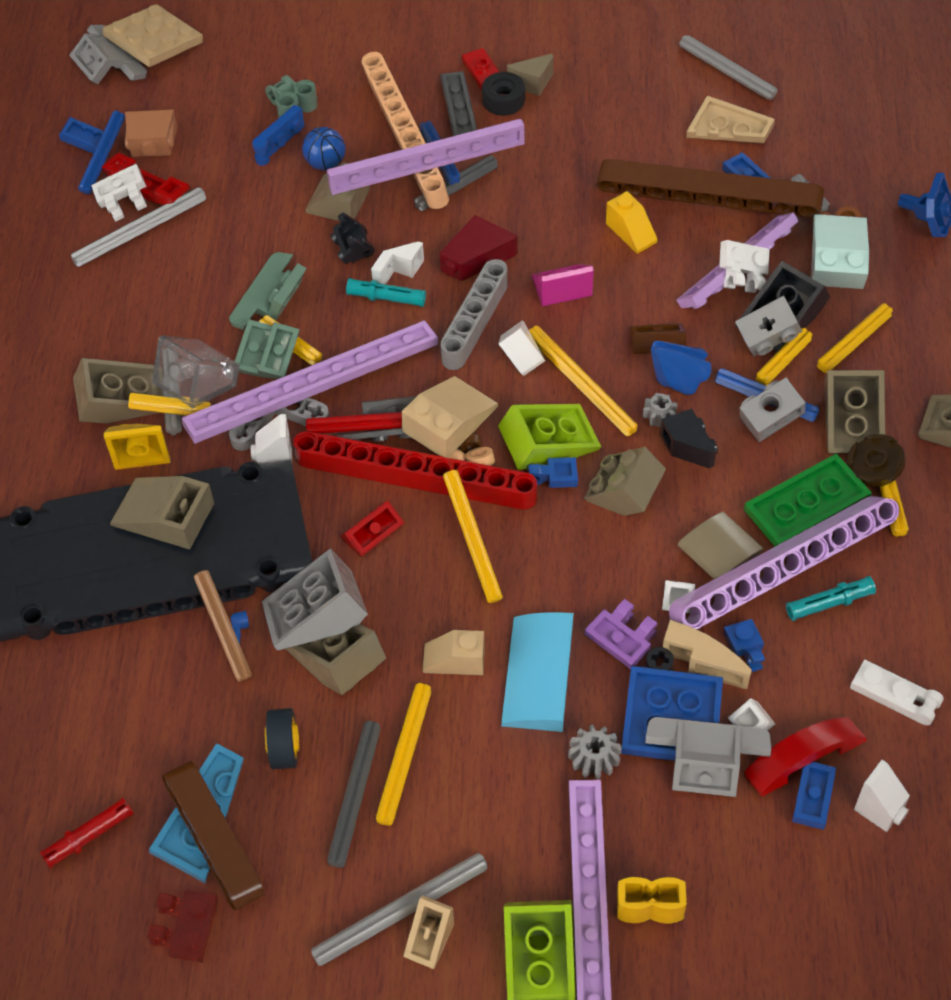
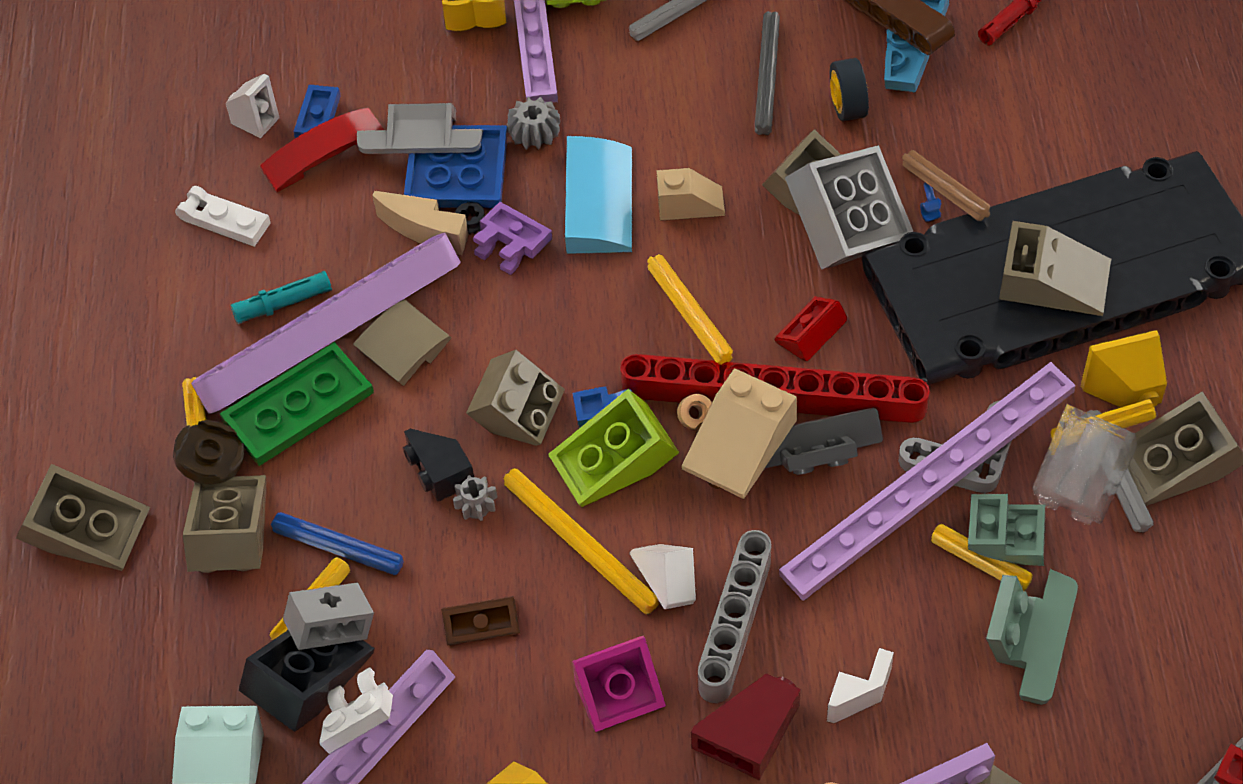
camera: 175 degrees right, 0 degrees up
(272, 442) = (952, 388): white slope -> none
(352, 239) = (938, 720): black piece -> none
(354, 423) = (852, 427): red axle -> none
(375, 290) = (867, 642): teal pin -> none
(403, 755) = (725, 111): yellow axle -> none
(675, 590) = (450, 292): white slope -> none
(680, 366) = (451, 560): blue hat -> none
(746, 641) = (376, 248): blue plate -> none
(751, 715) = (372, 177): white slope -> none
(765, 423) = (331, 499): light grey brick -> none
(854, 338) = (210, 642): yellow axle -> none

